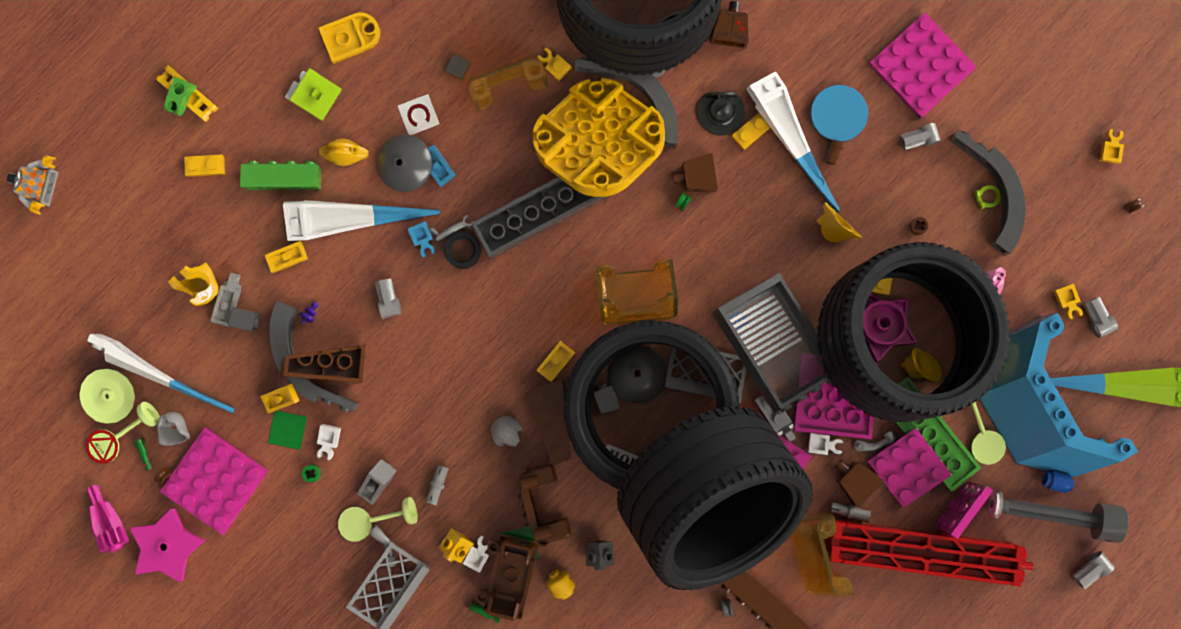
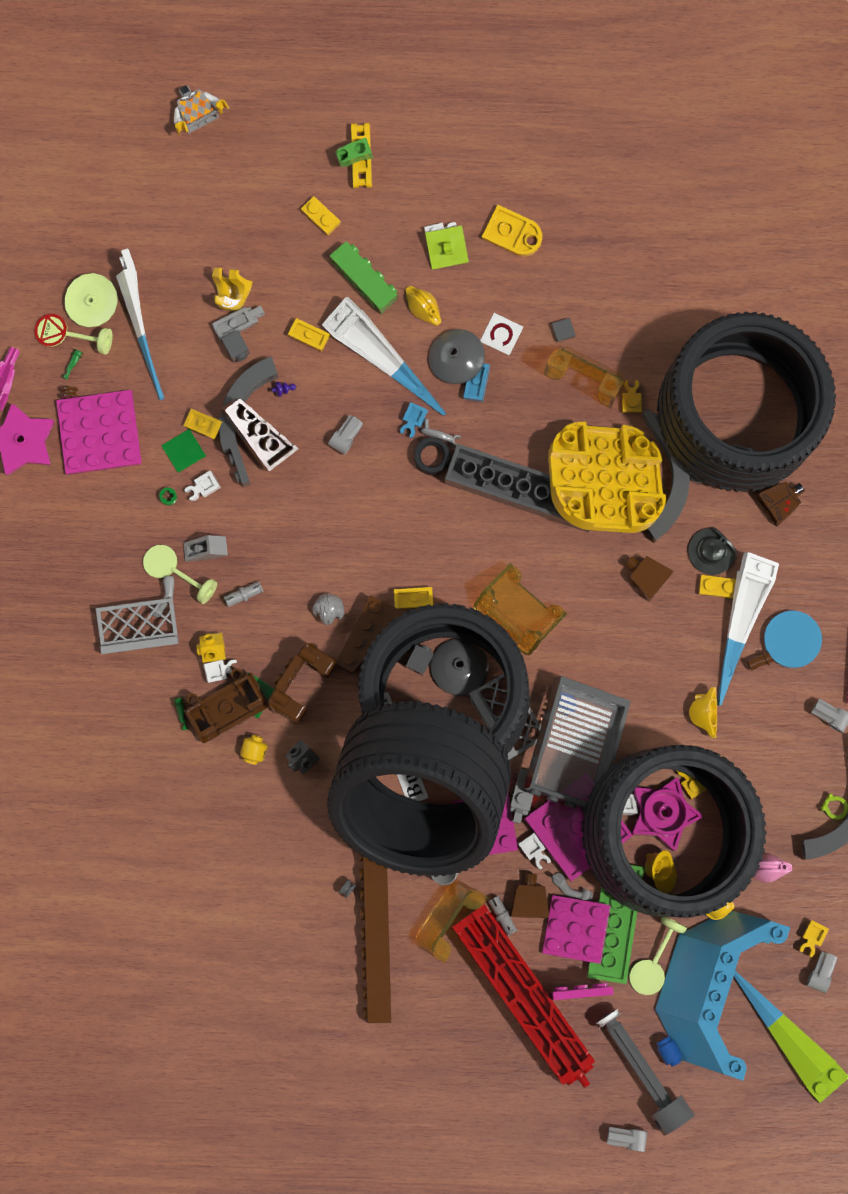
camera: 40 degrees right, 5 degrees down
(169, 436) = (101, 368): light grey hair -> none
(683, 201) = (618, 583): green bush -> none
(919, 220) = (769, 772): reddish brown bush -> none

